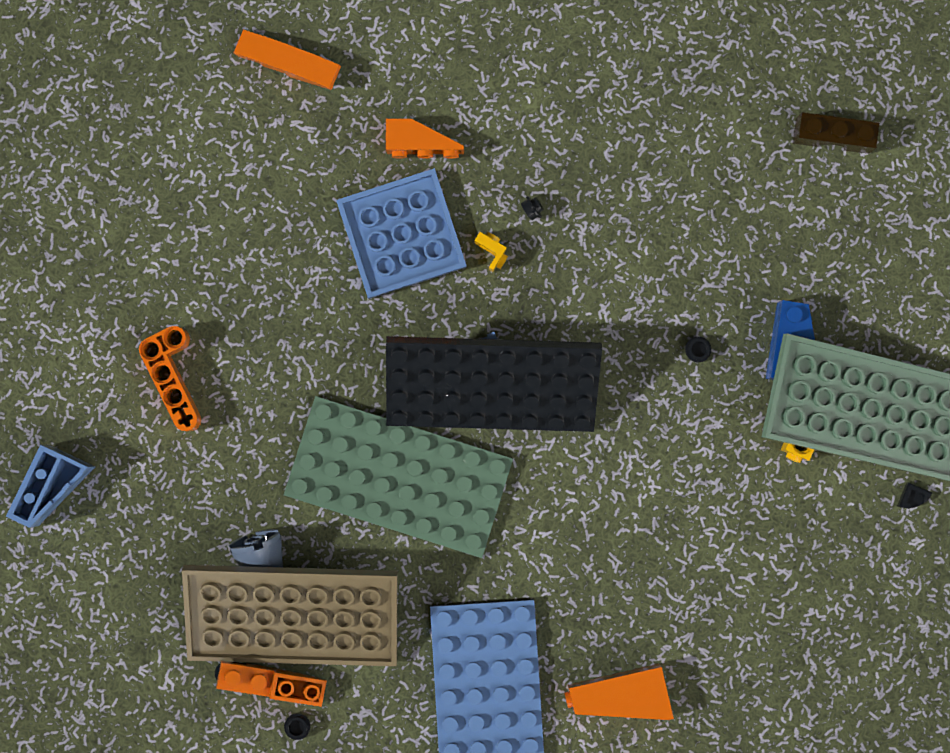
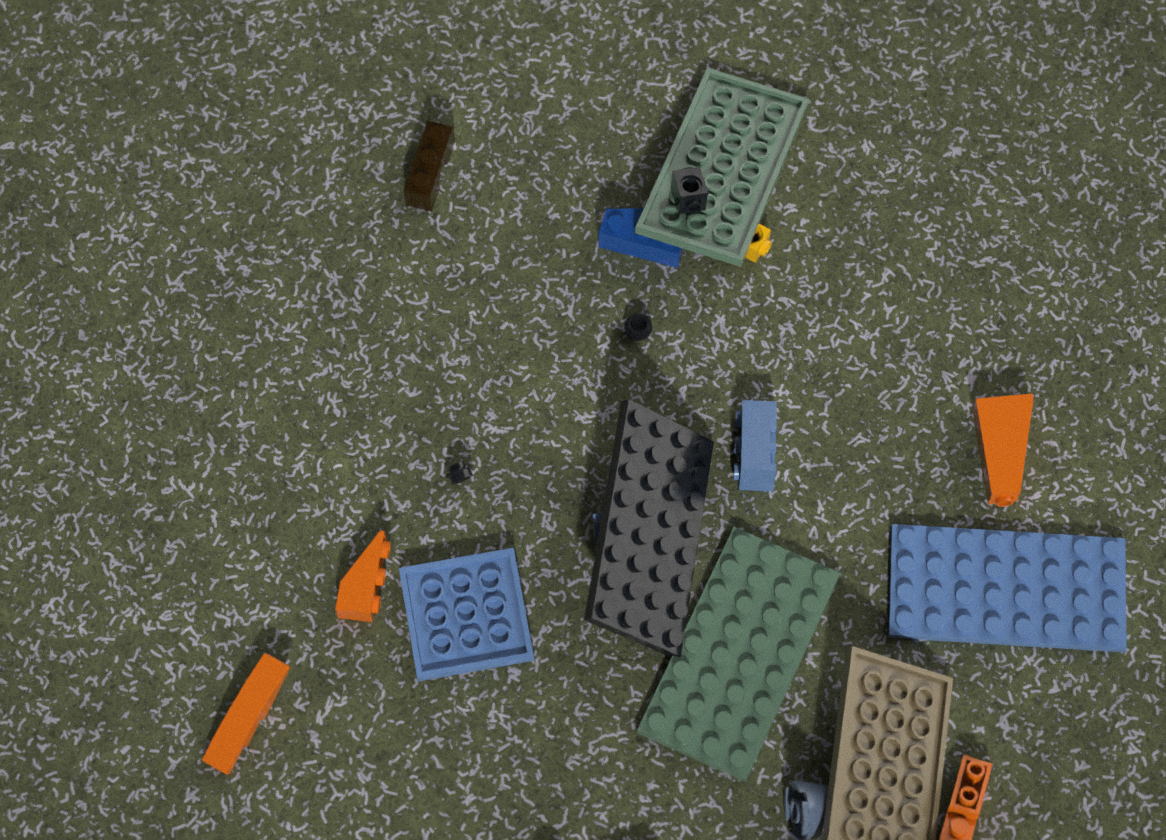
camera: 80 degrees left, 20 degrees down
(297, 726) = (1013, 797): black plate -> none
(490, 243) = (492, 520): yellow bracket -> none
(593, 470) = (756, 445): none -> medium blue wedge
(840, 376) = (689, 190): none -> black brick
(913, 496) = (818, 143): black tile -> none

